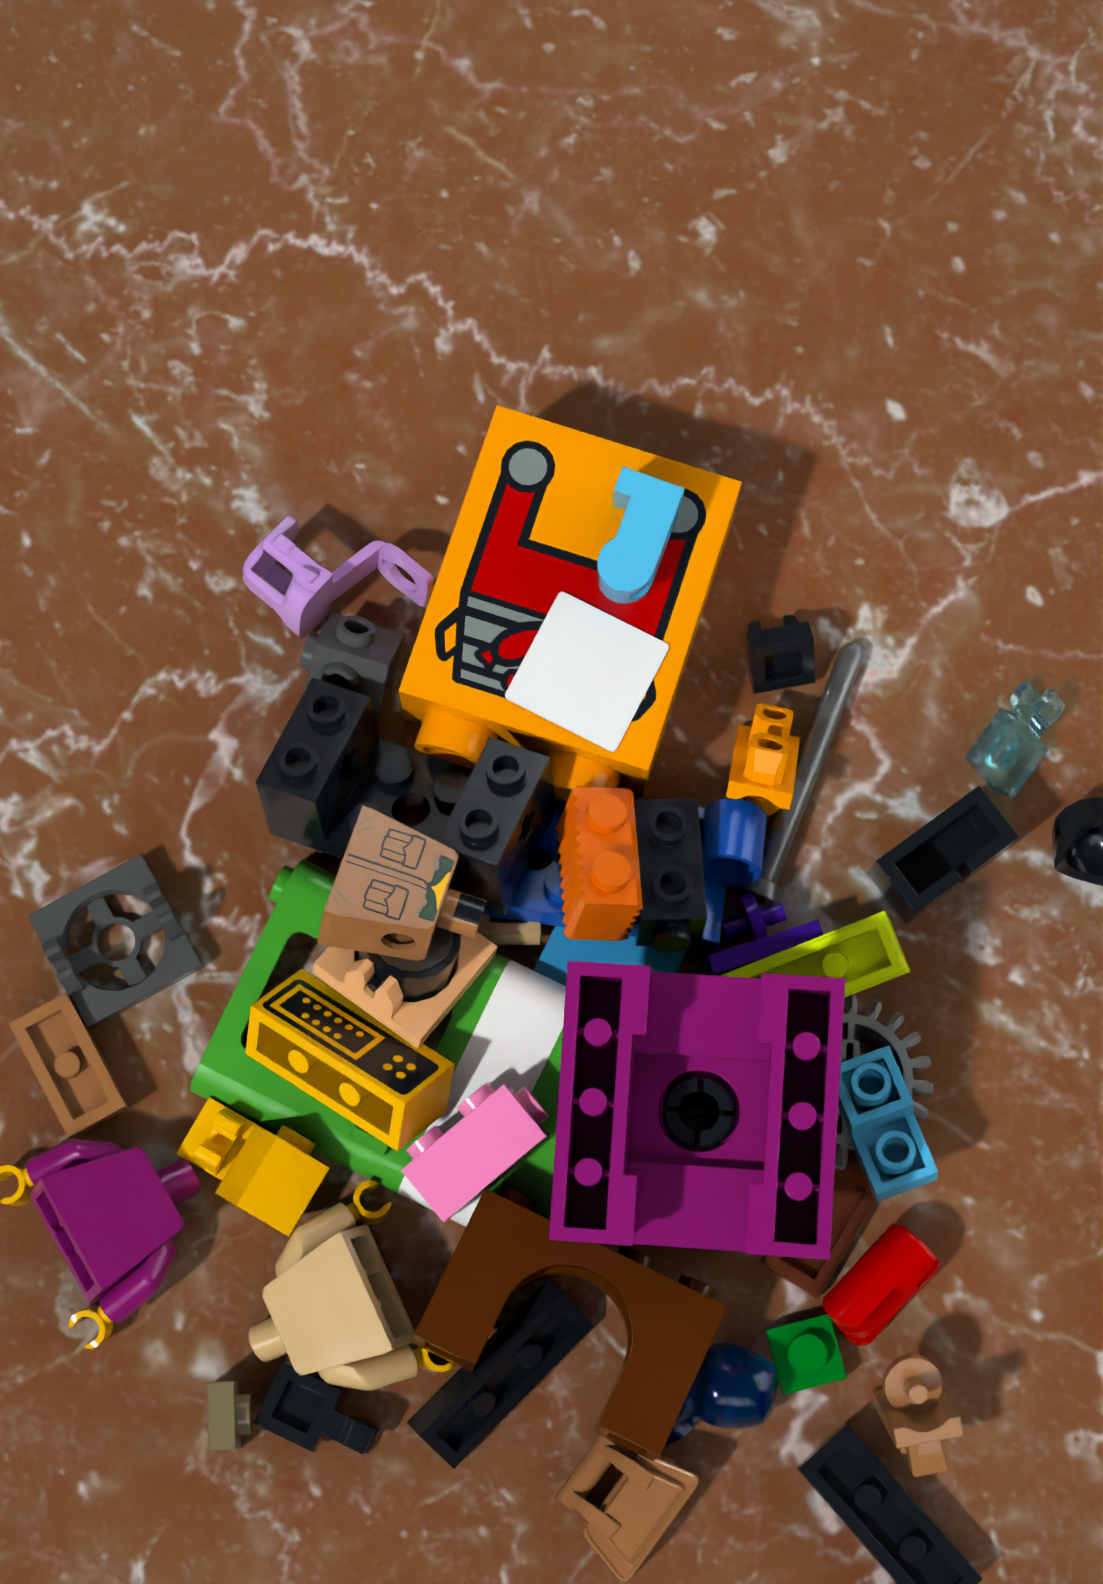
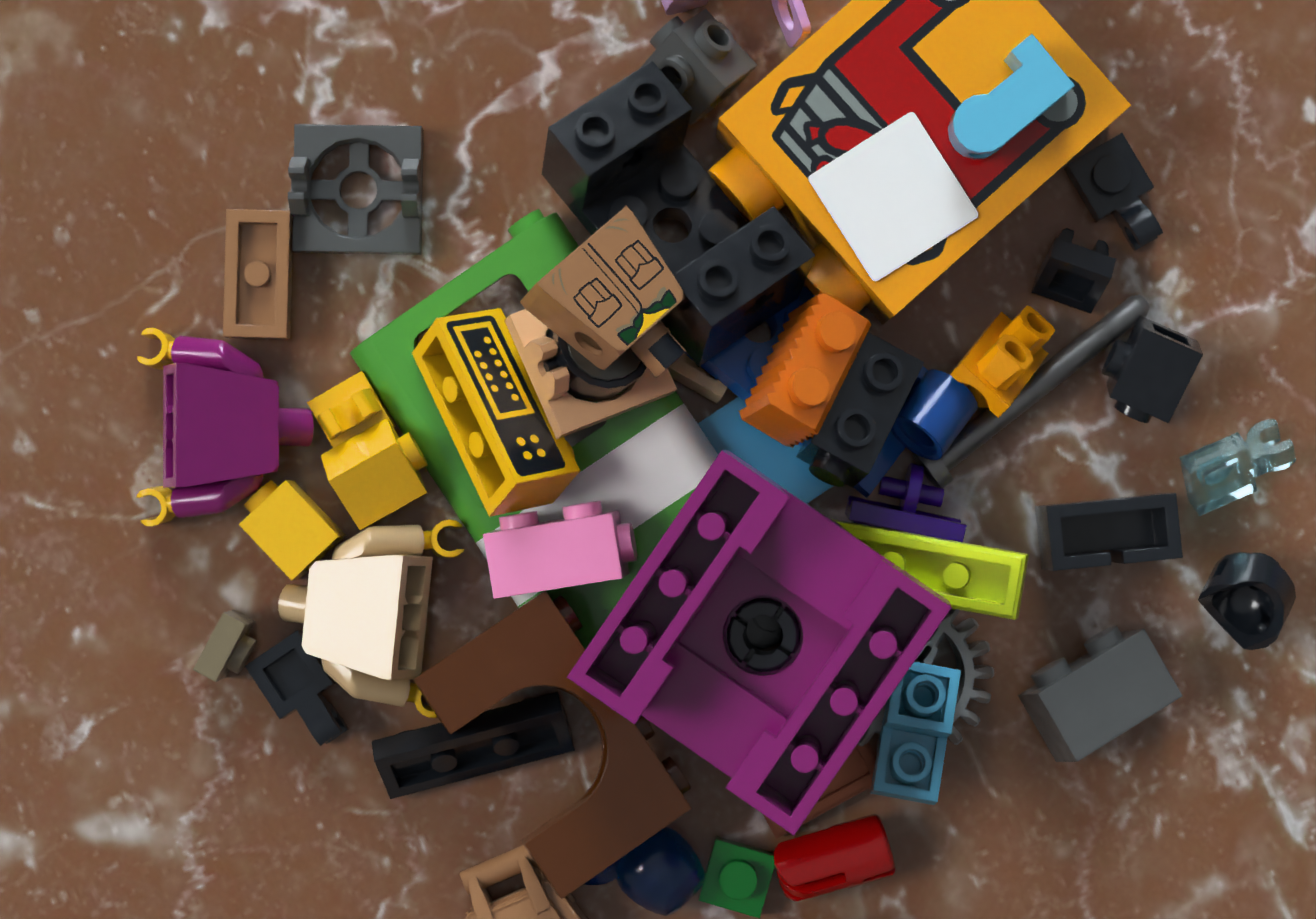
camera: 30 degrees right, 10 degrees up
(223, 1273) = (290, 527): none -> yellow brick
(768, 562) = (1111, 183): none -> black plate
(895, 699) = (1150, 370): none -> black brick
(1021, 1001) = (1098, 694): none -> dark grey brick

